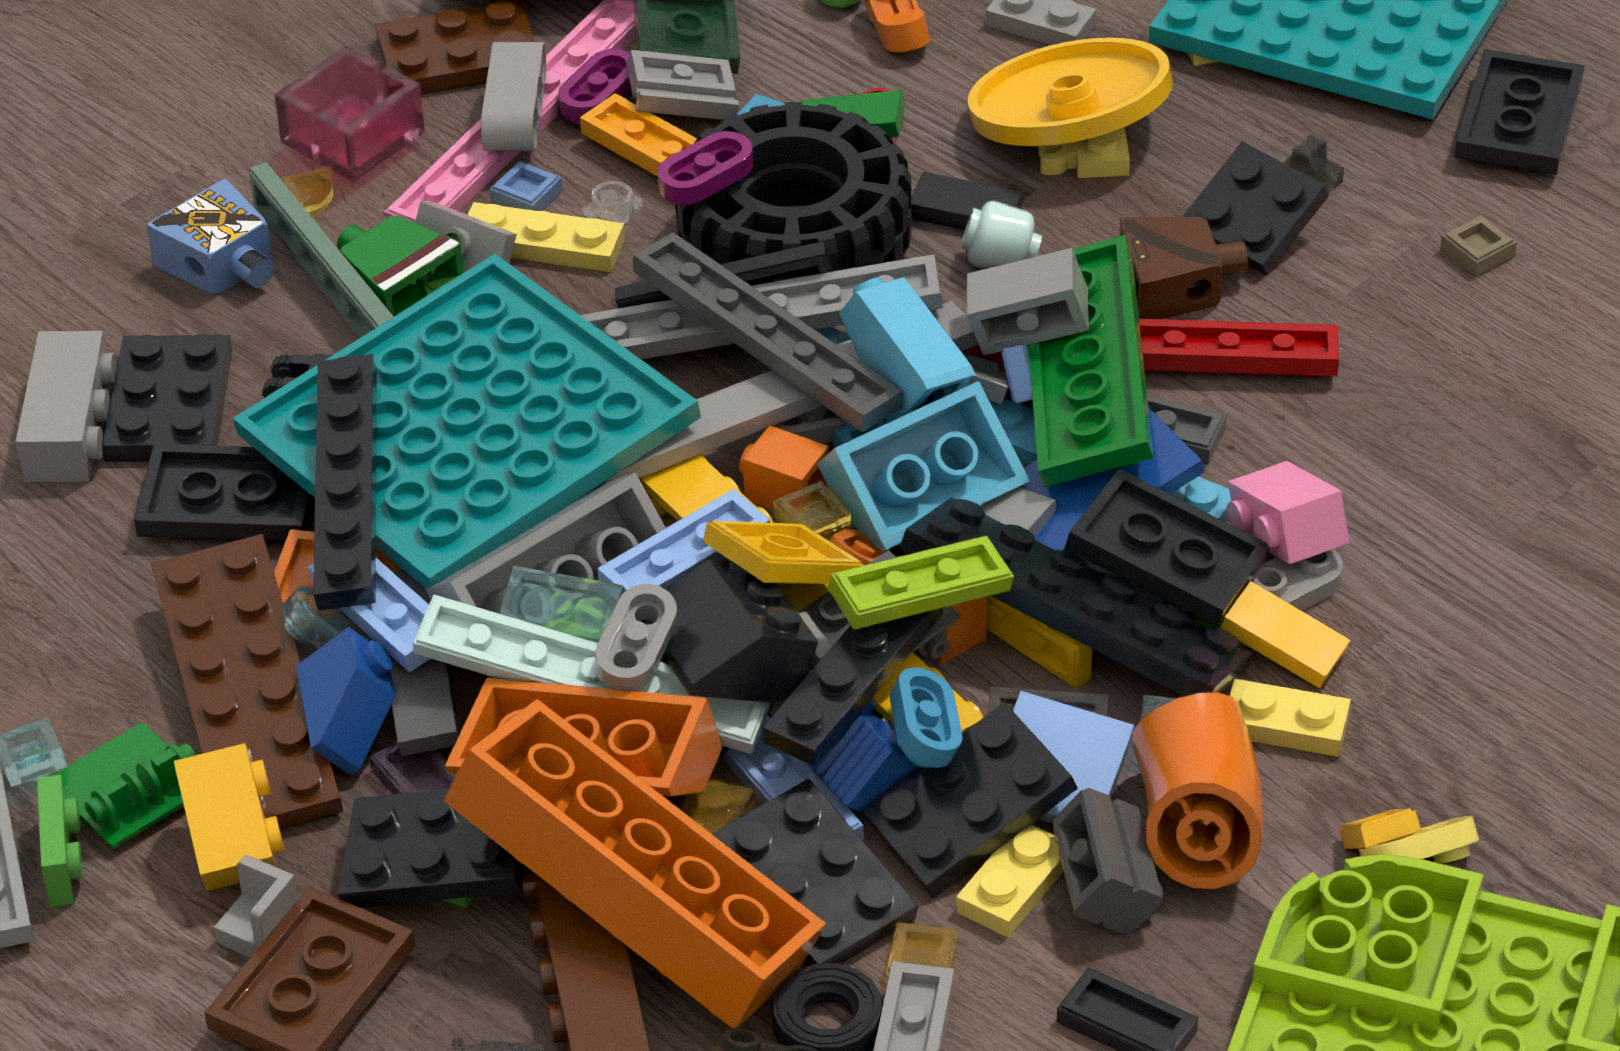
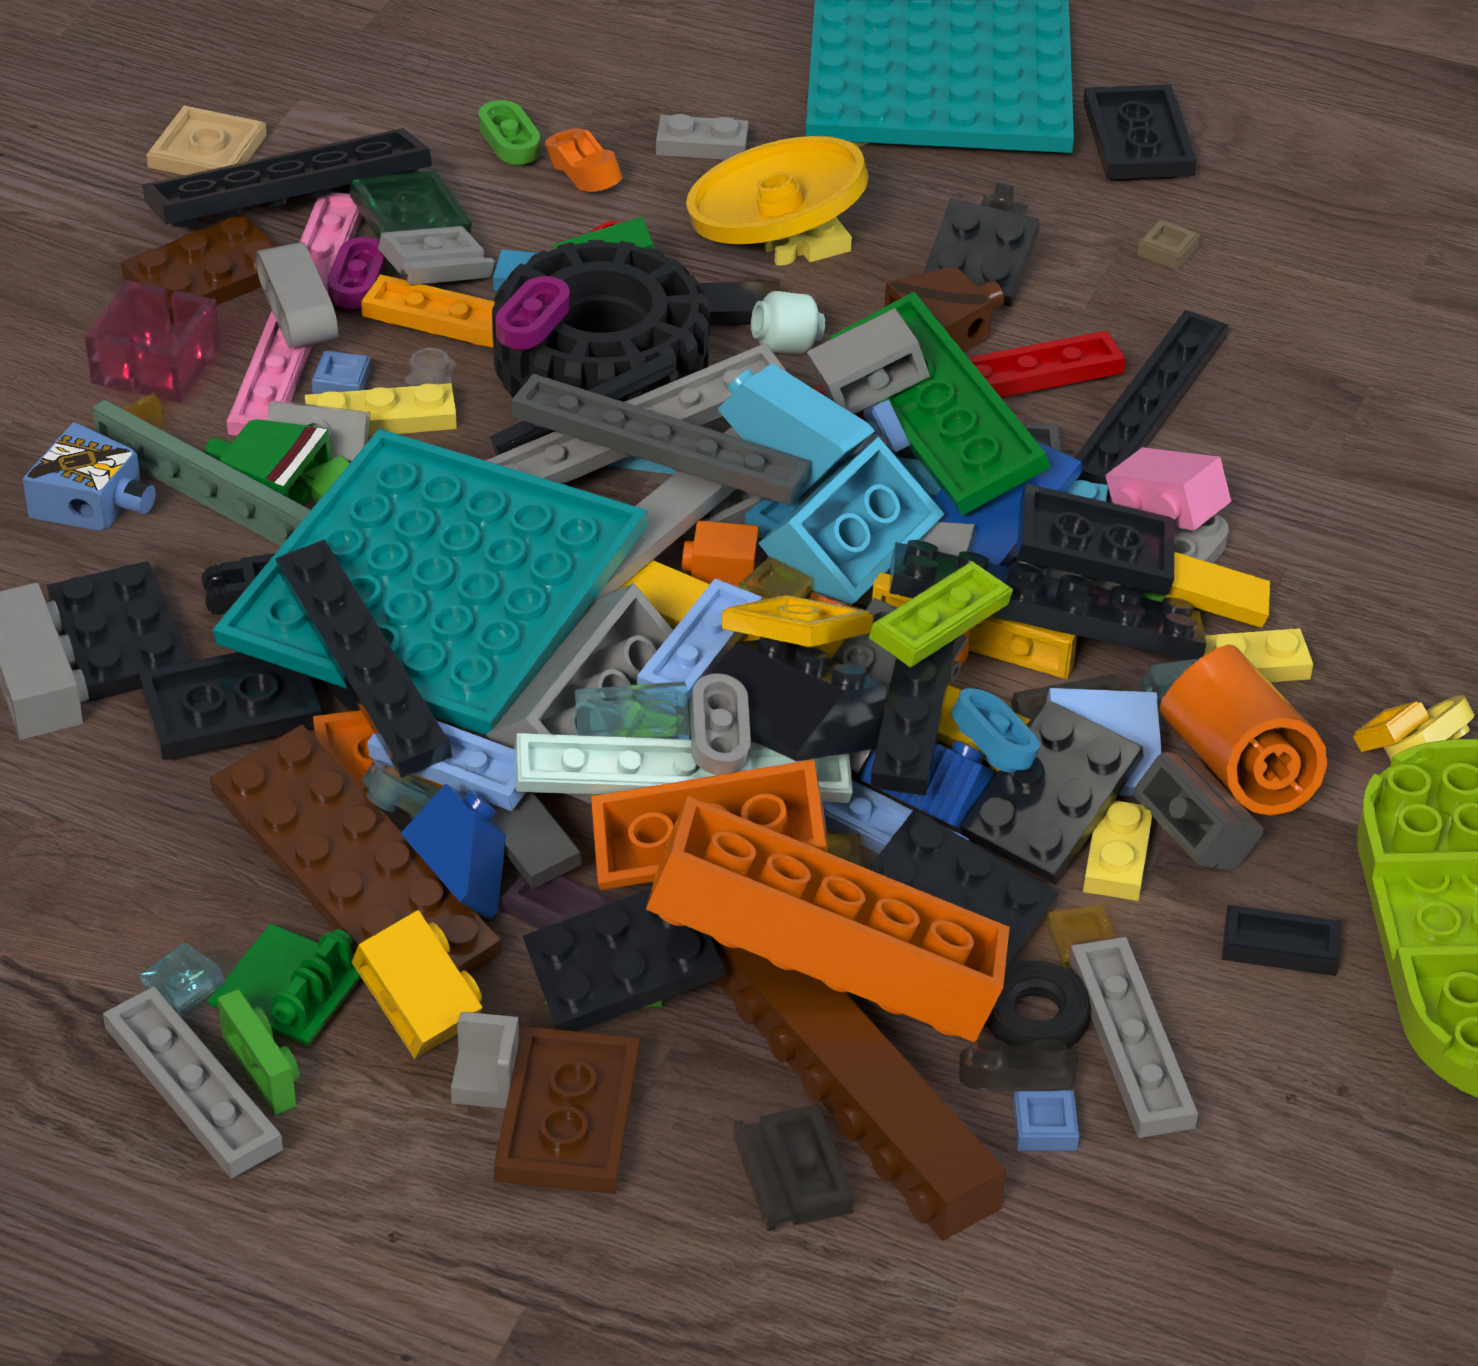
camera: 25 degrees left, 0 degrees up
(1354, 406) = (1151, 395): none -> black tile

